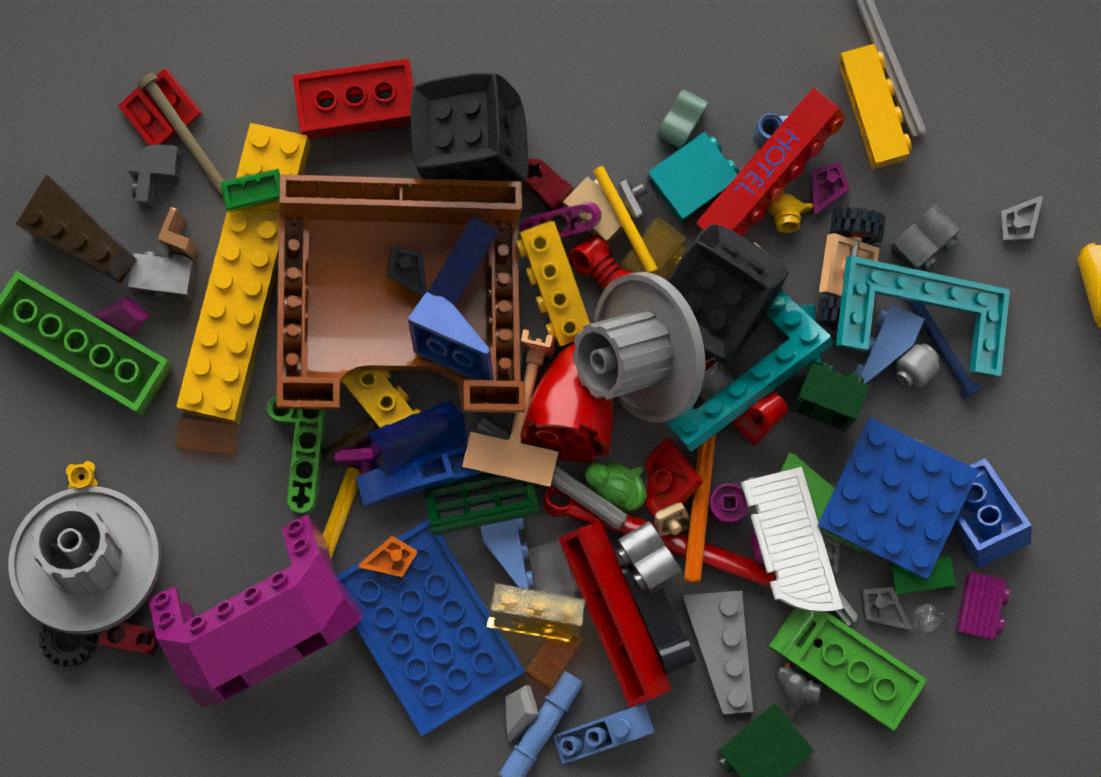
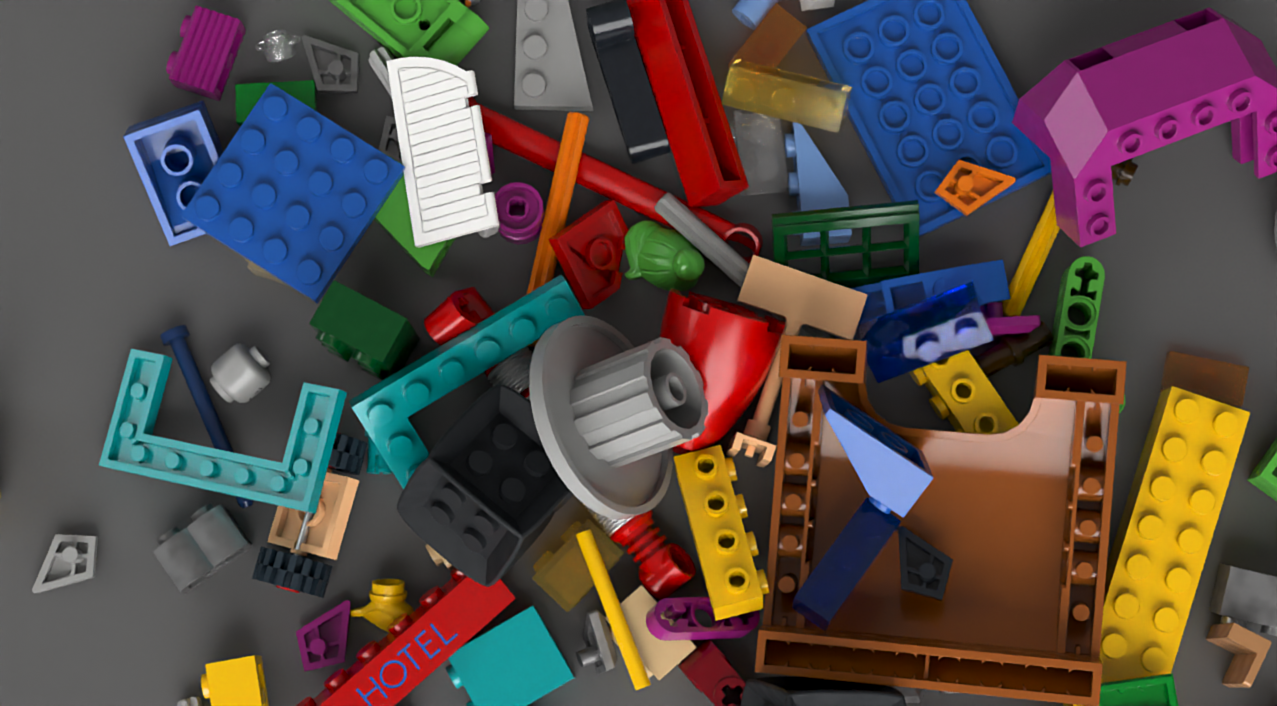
camera: 175 degrees left, 0 degrees up
(649, 557) = (631, 145): flat silver brick -> none
(672, 520) = (596, 196): tan piece -> none
(895, 336) = (268, 411): medium blue slope -> none

